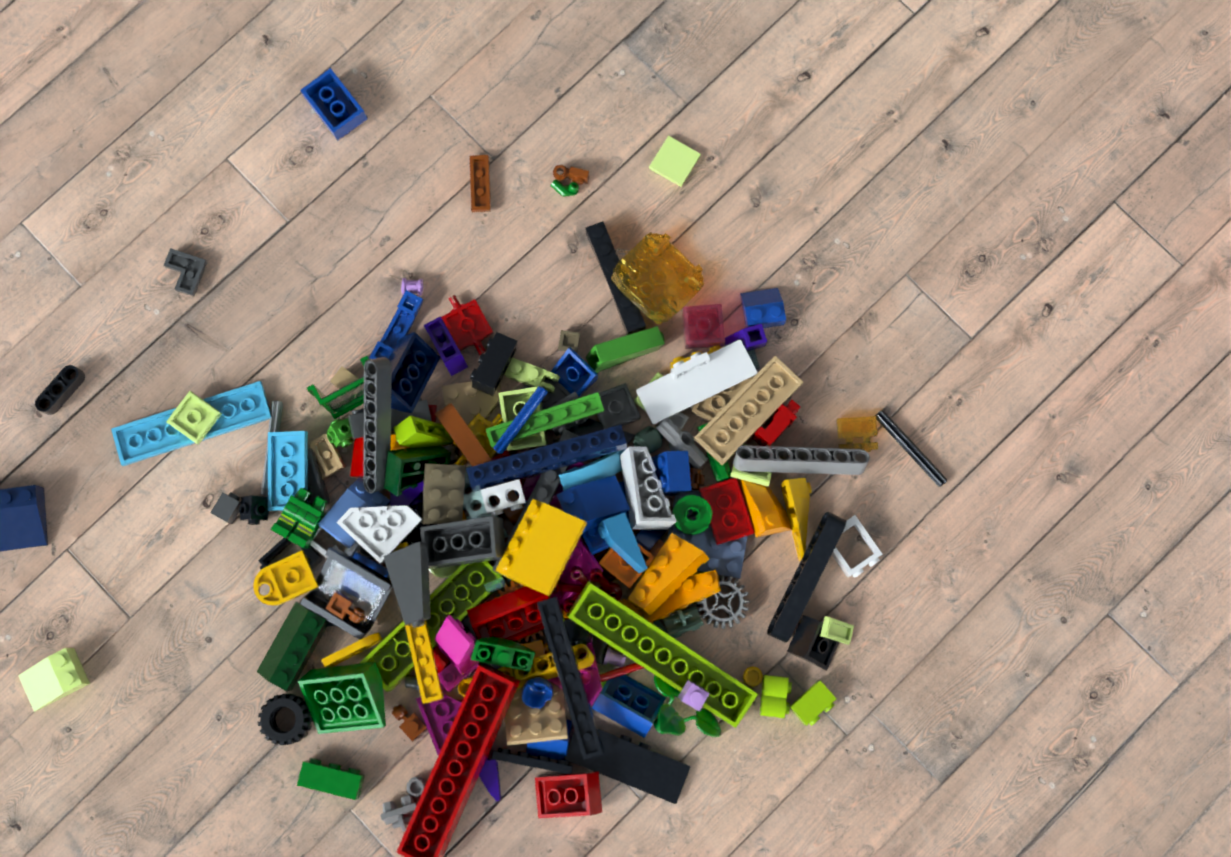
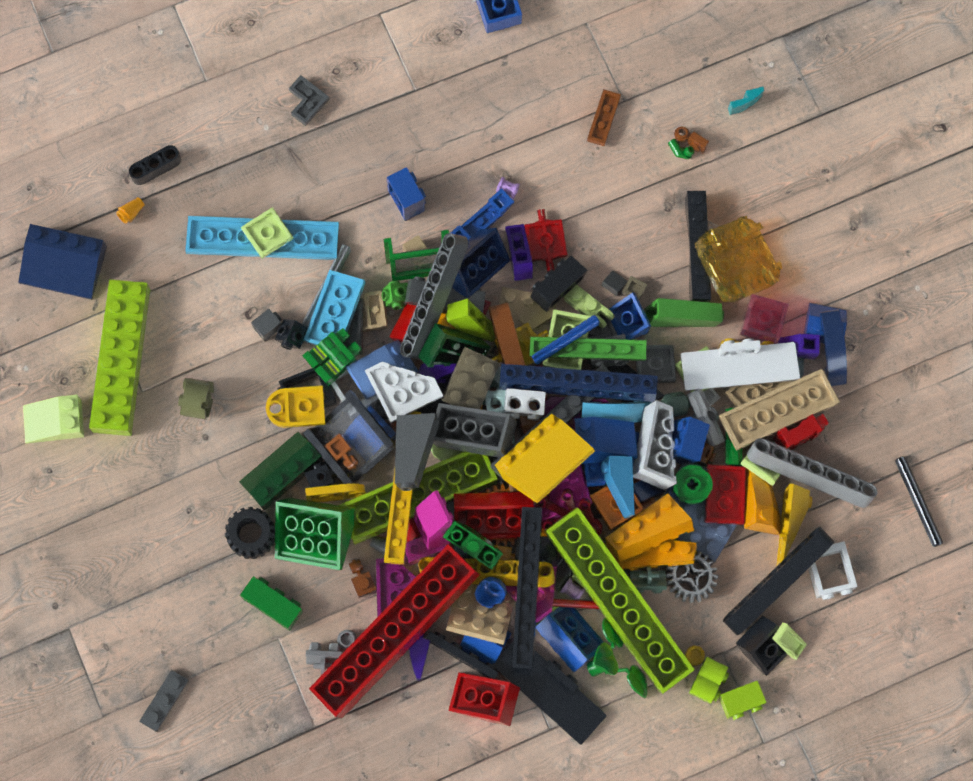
camera: 15 degrees right, 5 degrees down
(52, 444) = (129, 211): none -> light orange cone
(95, 594) = (120, 358): none -> lime brick
(184, 607) = (196, 400): none -> olive brick
(318, 332) = (406, 194): none -> blue brick
(327, 641) = (314, 475): none -> black brick
(495, 585) = (488, 480): clear light blue tile -> none
(548, 342) = (614, 283): none -> dark grey slope
(613, 114) = (749, 99): none -> teal slope
(674, 161) = (791, 161): yellowish green tile -> none
(693, 695) = (635, 645): lavender brick -> none
(779, 329) = (834, 347): none -> dark blue slope
(856, 428) = (875, 464): clear yellow plate -> none

